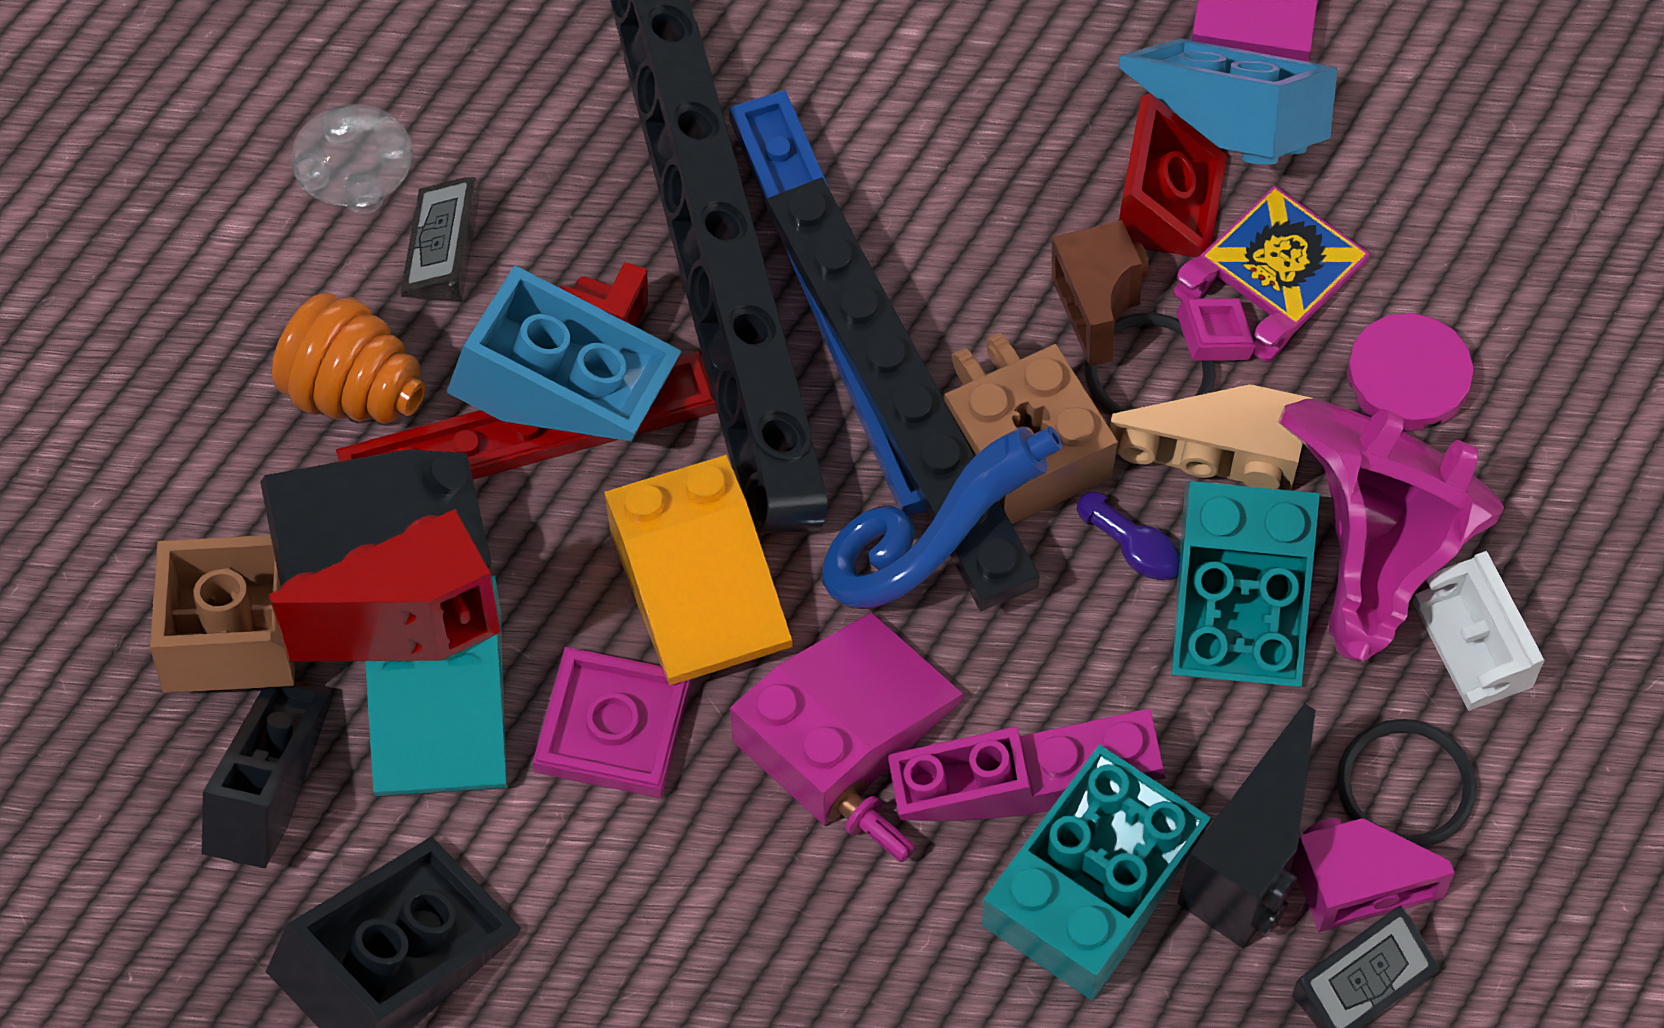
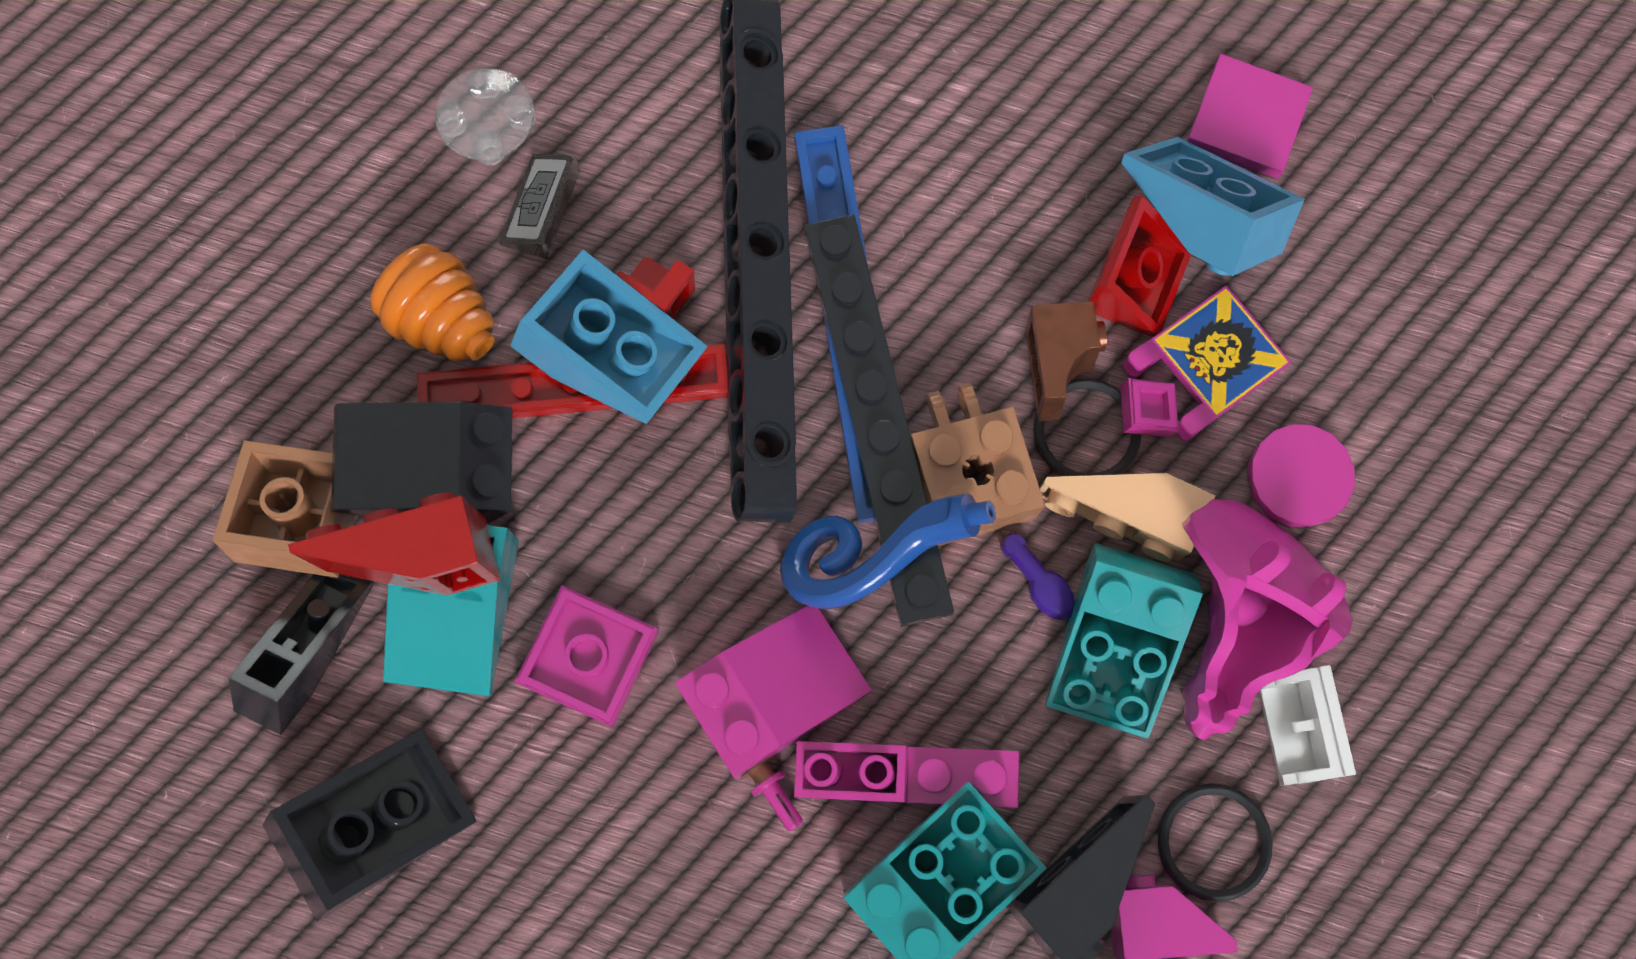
camera: 10 degrees right, 15 degrees up
(697, 569) = (678, 545): light orange slope -> none

